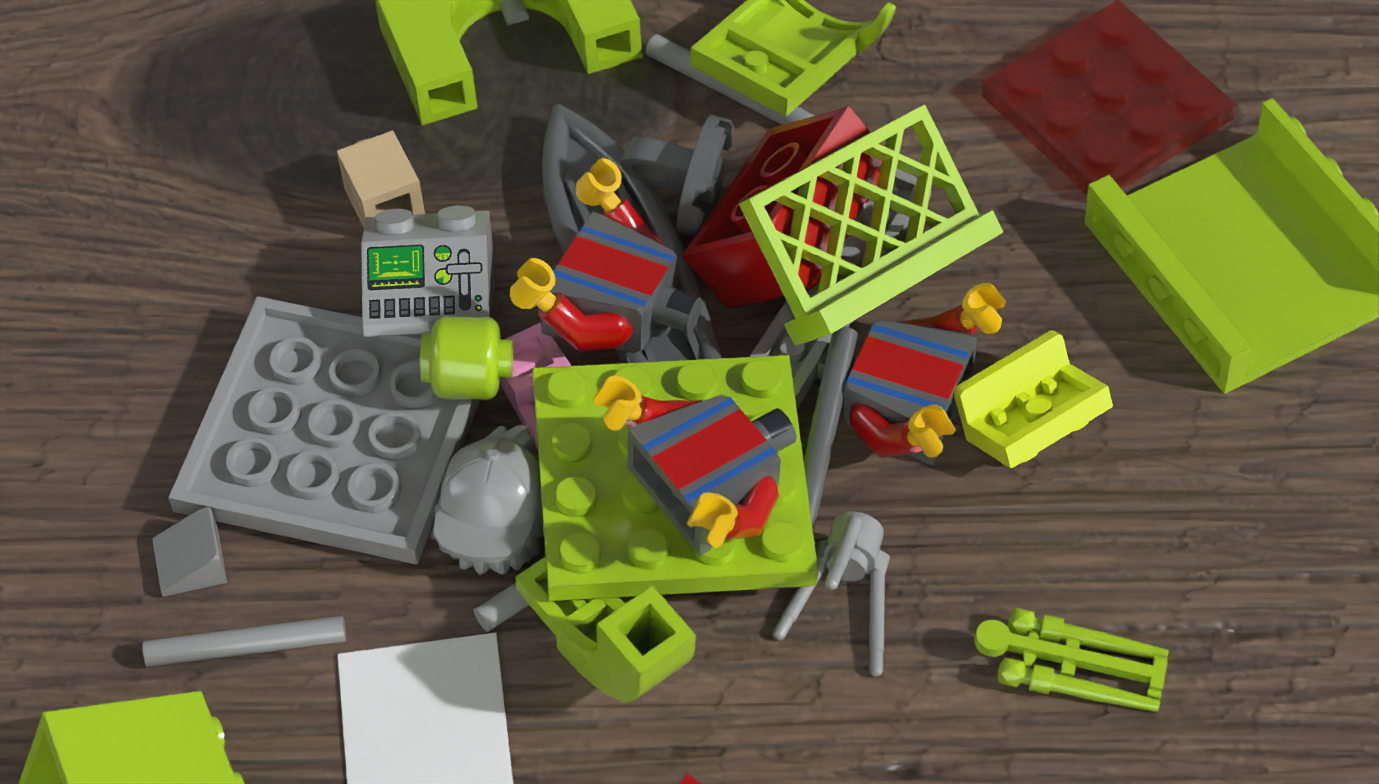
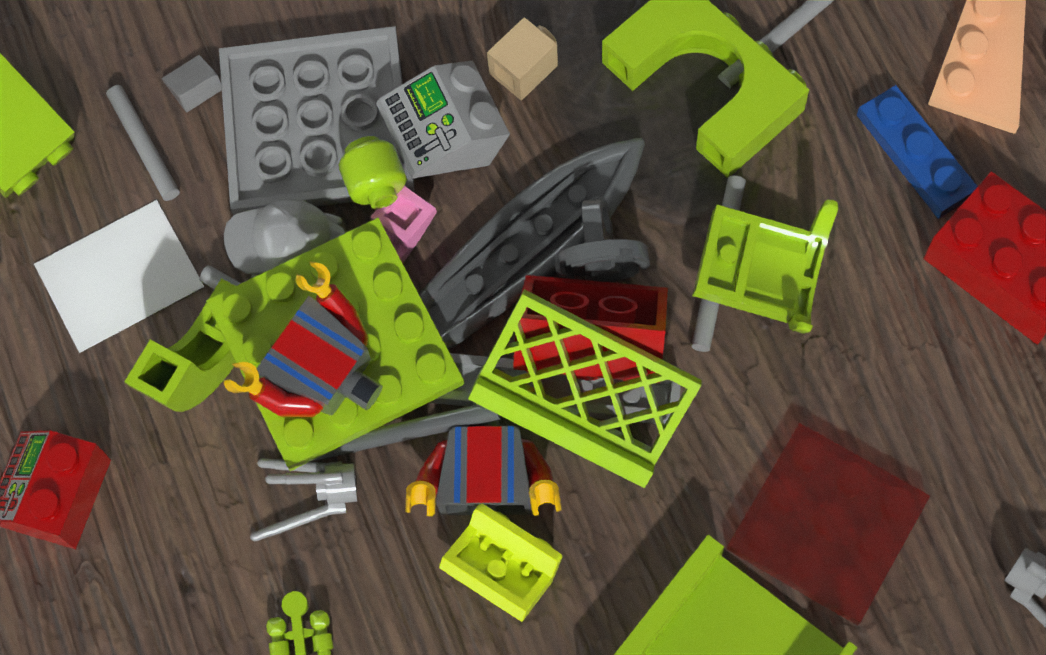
camera: 70 degrees right, 15 degrees up
(612, 278) = (470, 236): torso -> none

